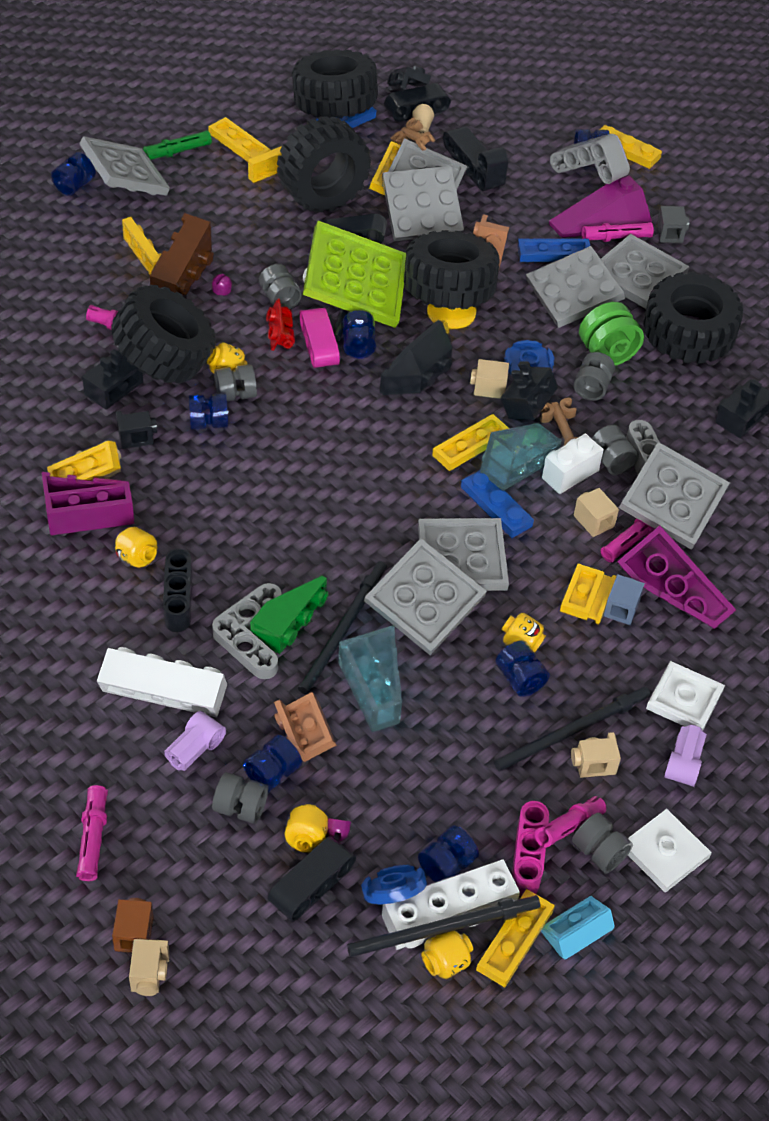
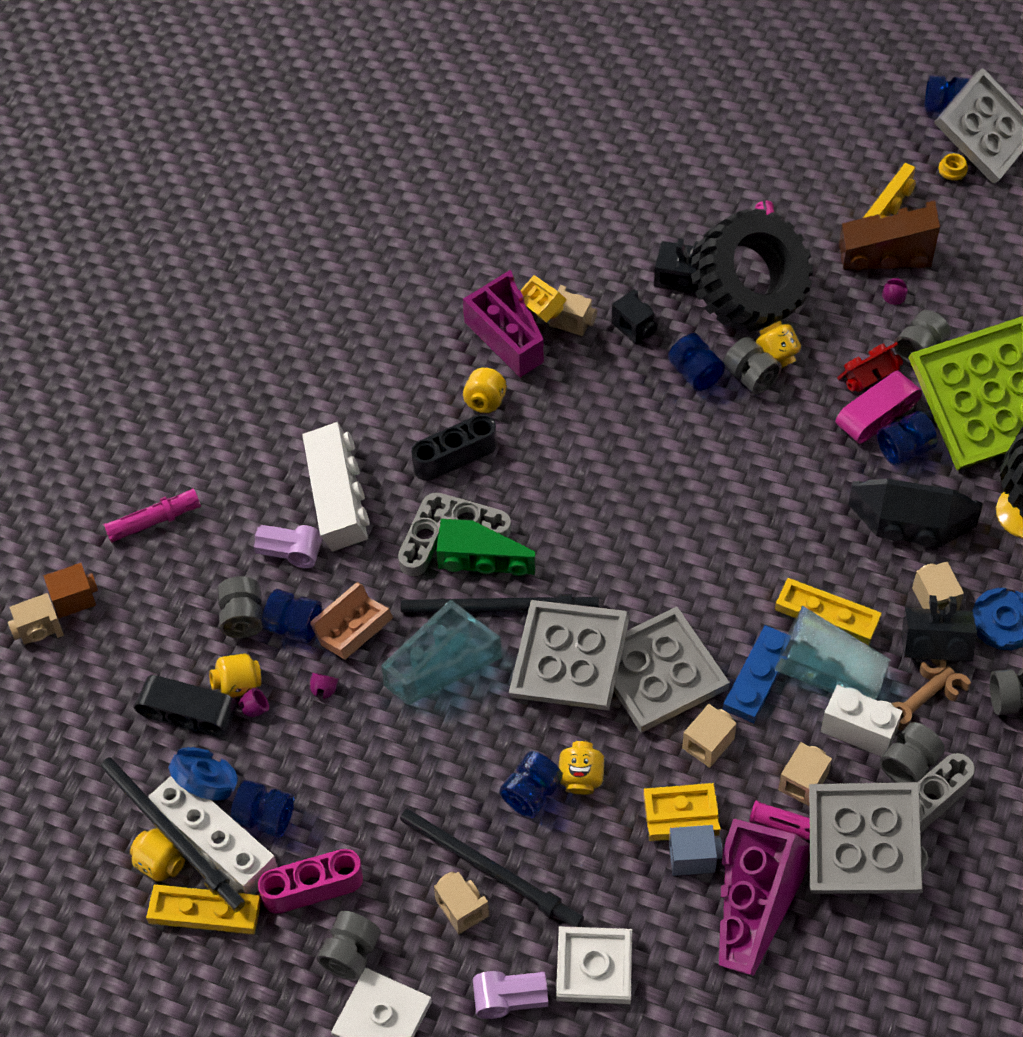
camera: 70 degrees right, 5 degrees up
(137, 204) = (953, 167): none -> yellow plate
(348, 772) = (323, 682): none -> magenta hinge
(536, 549) = (709, 735): none -> tan brick
(569, 822) = (352, 901): dark pink pin -> none
(578, 927) = (248, 965): medium azure slope -> none

